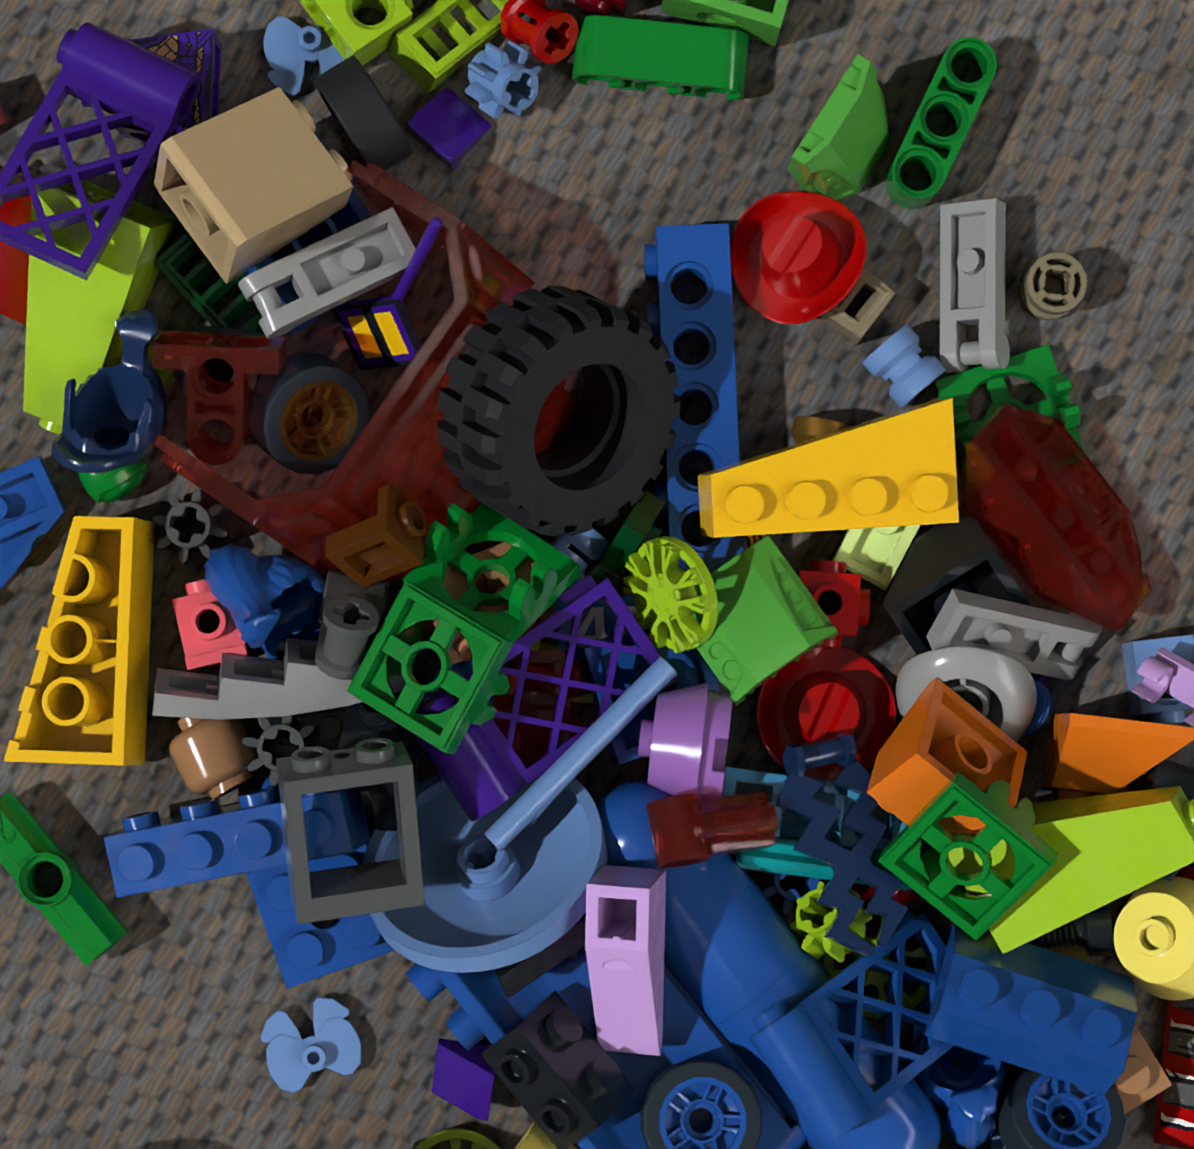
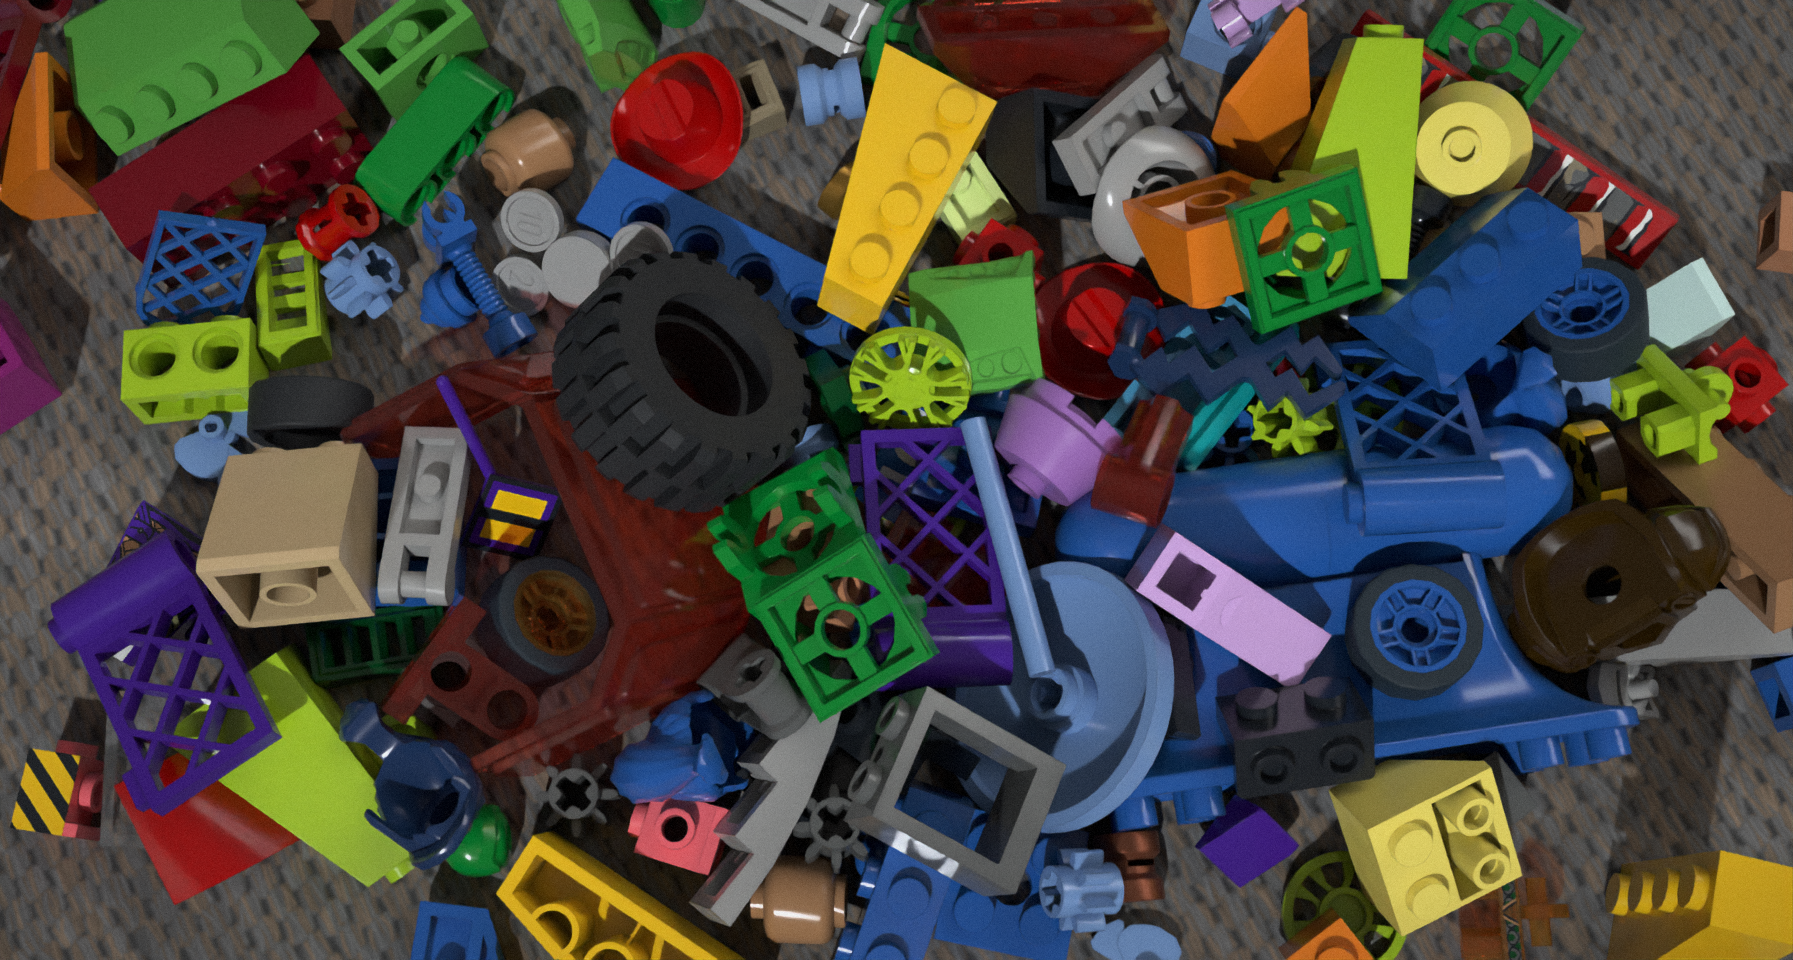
camera: 50 degrees left, 10 degrees down
(346, 969) = (1081, 890): none -> medium blue gear
(378, 1001) = (1138, 852): none -> copper wheel
(382, 543) = (702, 608): reddish brown bracket -> none
(448, 127) = (374, 355): dark purple slope -> none
(533, 162) = (447, 300): none -> blue plate
(534, 224) = (456, 246): none -> blue bar
(620, 251) = (571, 264): none -> light grey piece
(694, 146) = (529, 153): none -> medium nougat head

